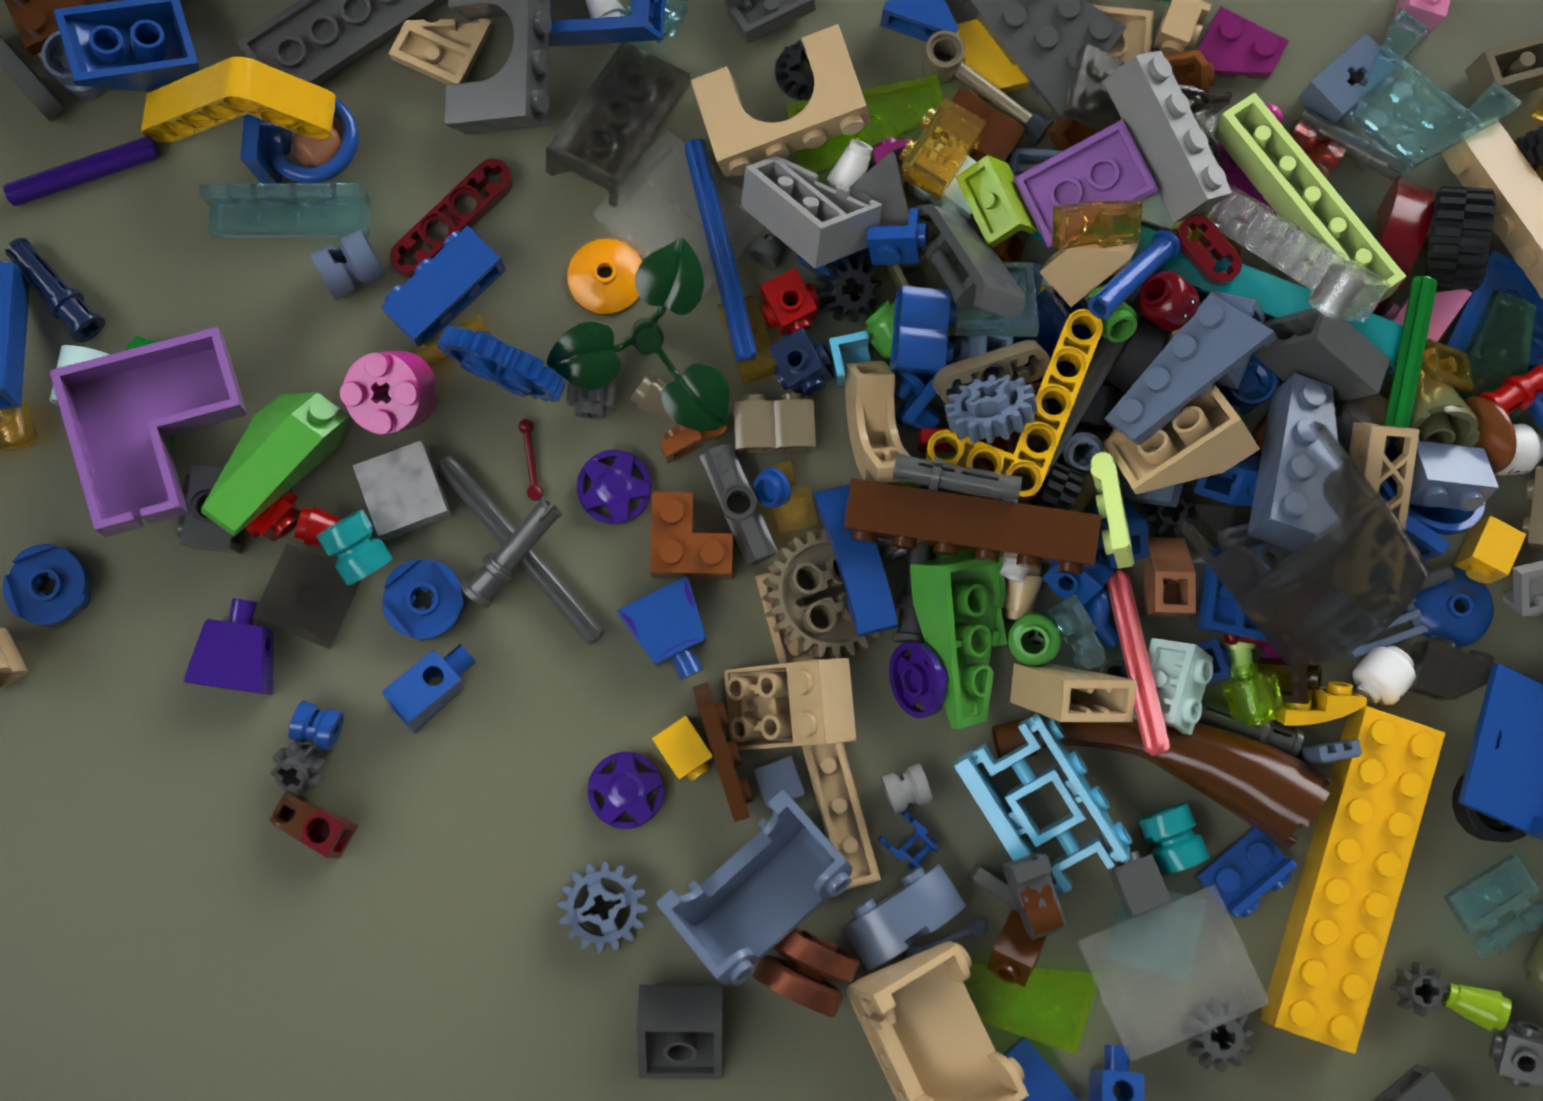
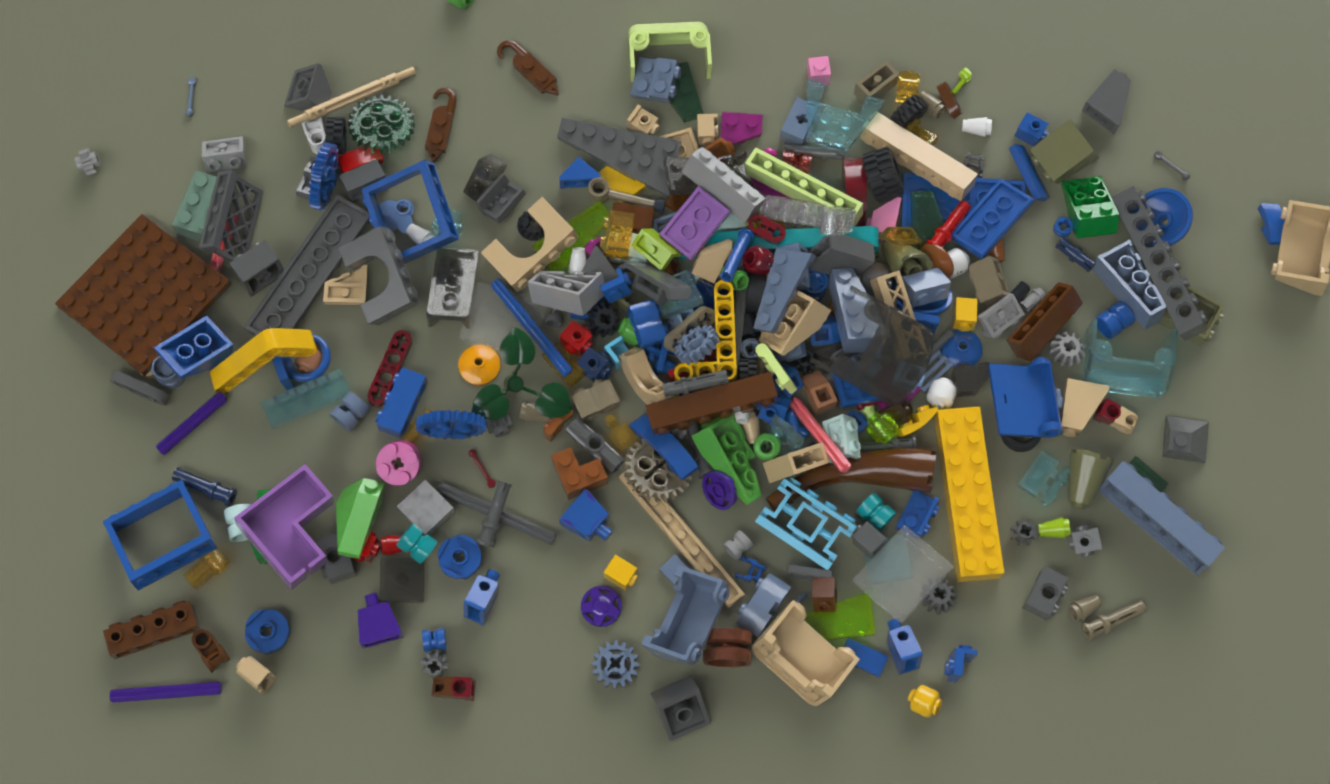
camera: 20 degrees left, 10 degrees down
(614, 487) = (529, 464): dark purple wheel -> none
(724, 753) = (631, 555): reddish brown wing -> none
(772, 488) = (608, 429): blue plate -> none
(790, 704) = (663, 528): tan slope -> none
(1035, 894) = (820, 563): dark grey leg -> none
(1097, 223) = (708, 238): clear yellow slope -> none
(1330, 751) = (931, 437): sand blue tile -> none
(1410, 352) = (881, 236): green axle -> none

